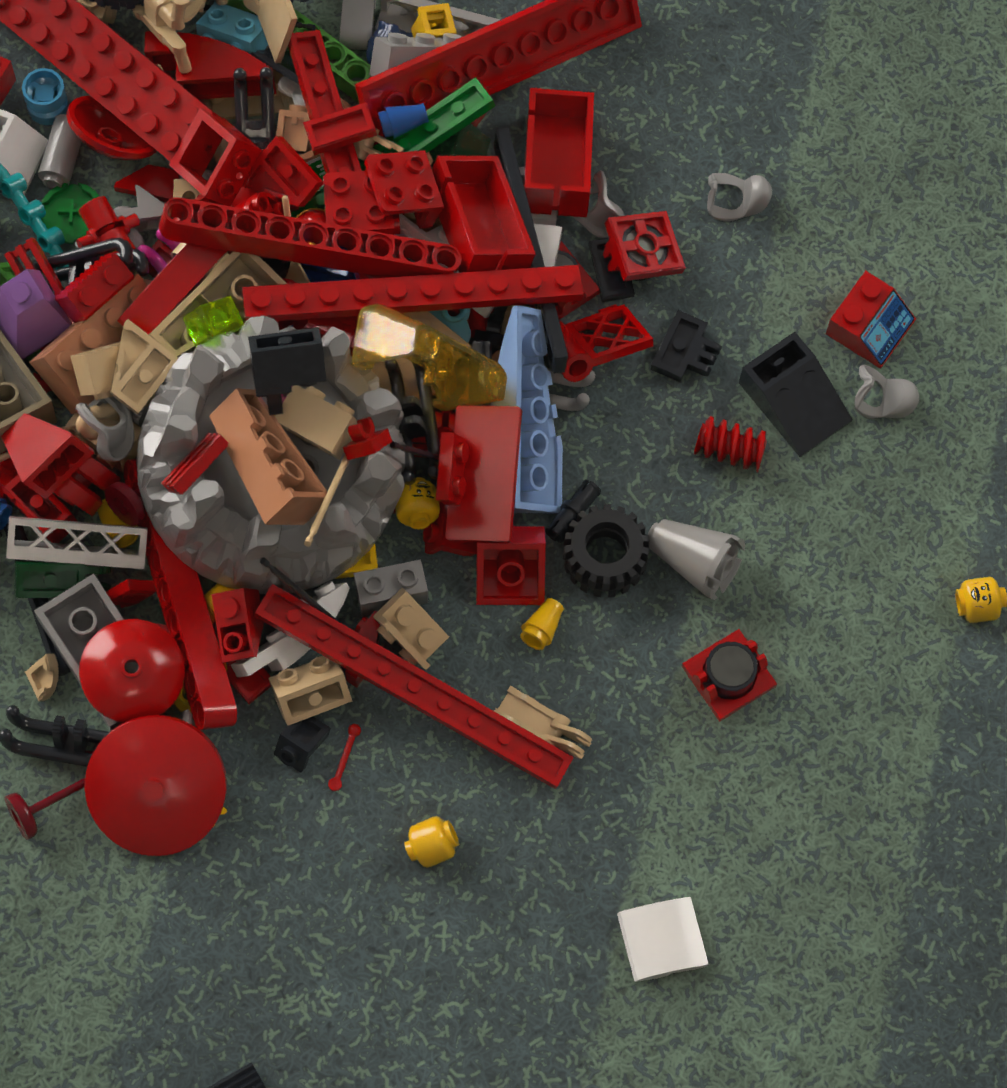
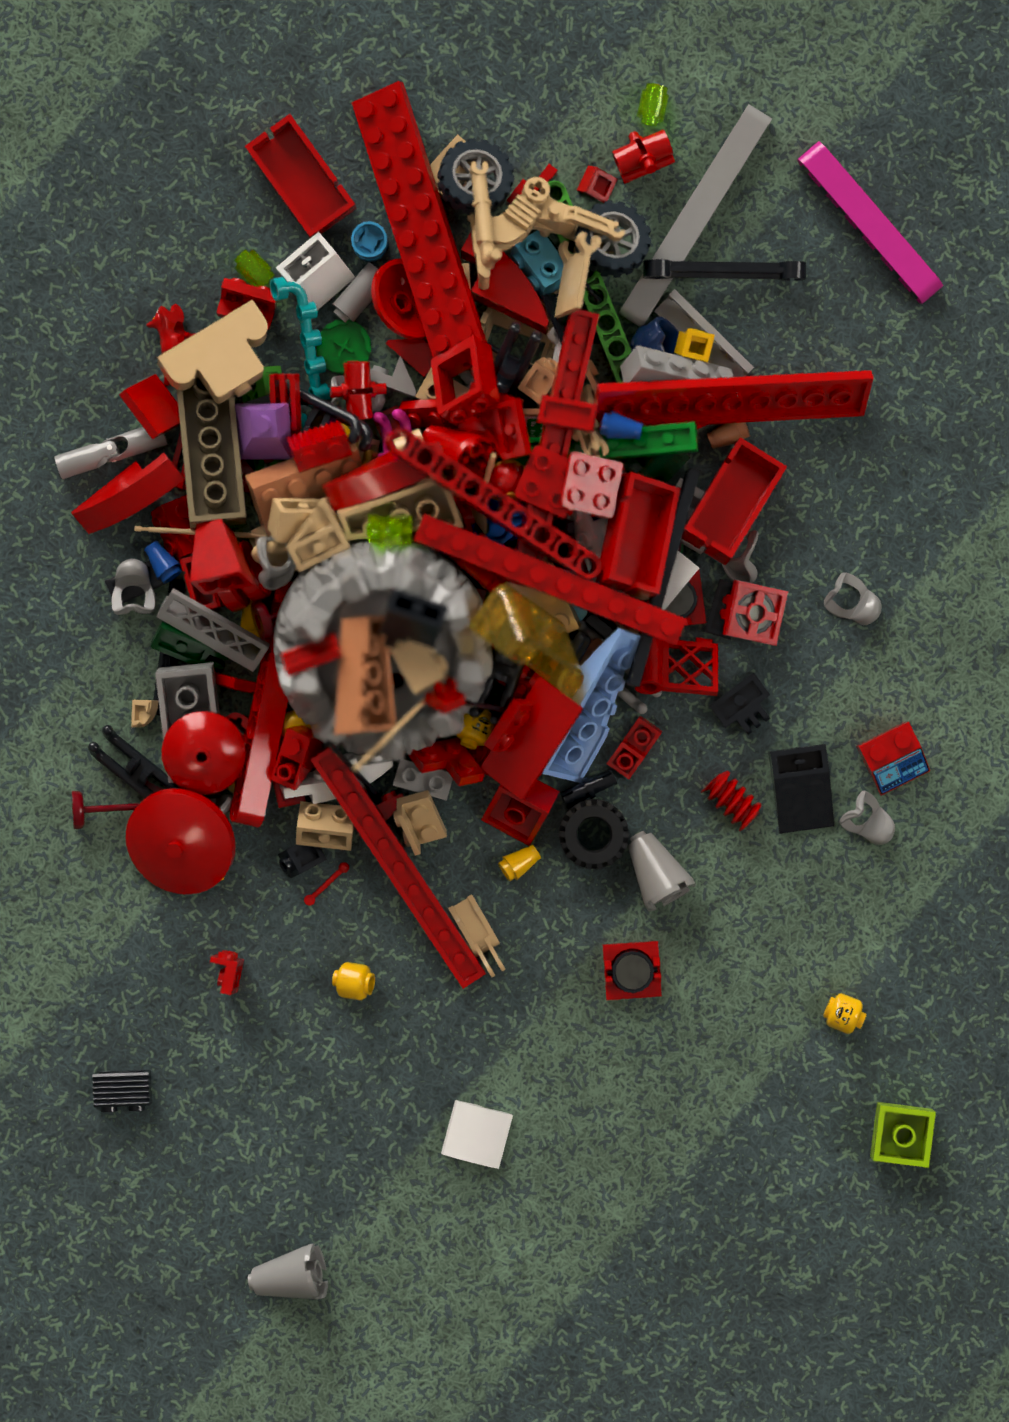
camera: 30 degrees right, 20 degrees up
(283, 890) = (229, 976): none -> red bracket
(406, 546) = (450, 756): none -> red plate
(515, 102) = (728, 434): none -> nougat cone
(597, 447) = (634, 747): none -> red slope

